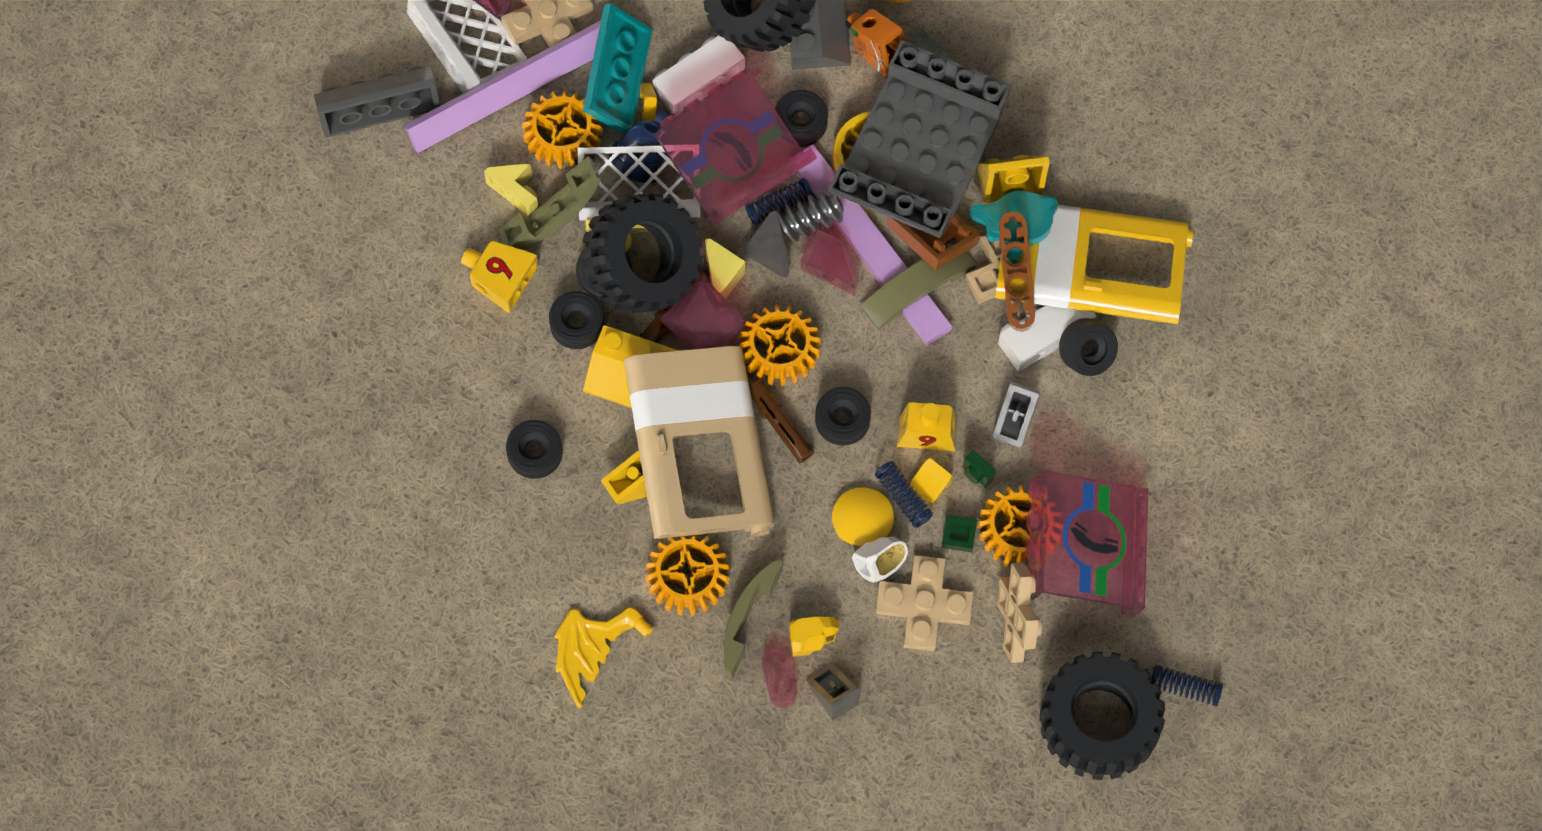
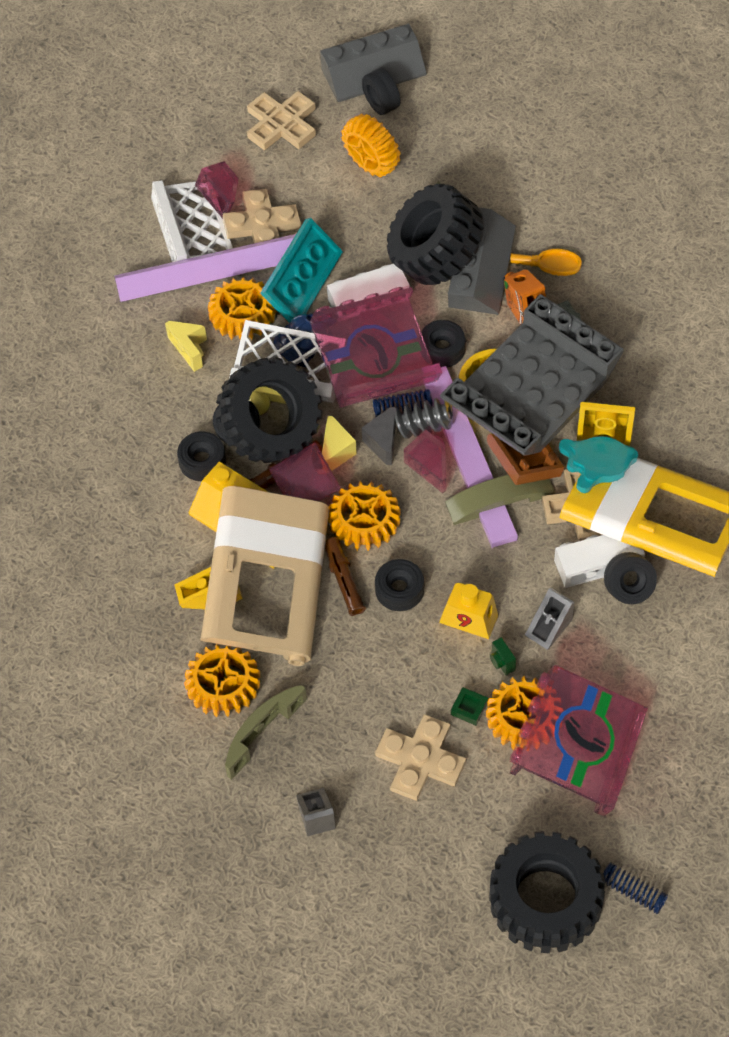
camera: 20 degrees right, 10 degrees down
(377, 101) = (99, 254): dark grey slope -> none
(500, 272) = (153, 405): yellow torso -> none
(540, 465) = (130, 534): black tyre -> none
(554, 213) = (186, 378): olive slope -> none
(584, 645) = (116, 717): yellow animal -> none
(649, 105) = (320, 299): yellow tile -> none
(786, 676) = (278, 787): clear pink beam -> none
(812, 634) = (311, 756): yellow rock -> none
(862, 516) = (390, 672): yellow dish -> none
(880, 558) = (393, 708): white rock -> none
(925, 515) = (445, 680): dark blue piece -> none
(931, 481) = (459, 657): yellow slope -> none
(1018, 271) = (582, 497): dark orange beam -> none
(1021, 623) = (497, 781): tan plate -> none

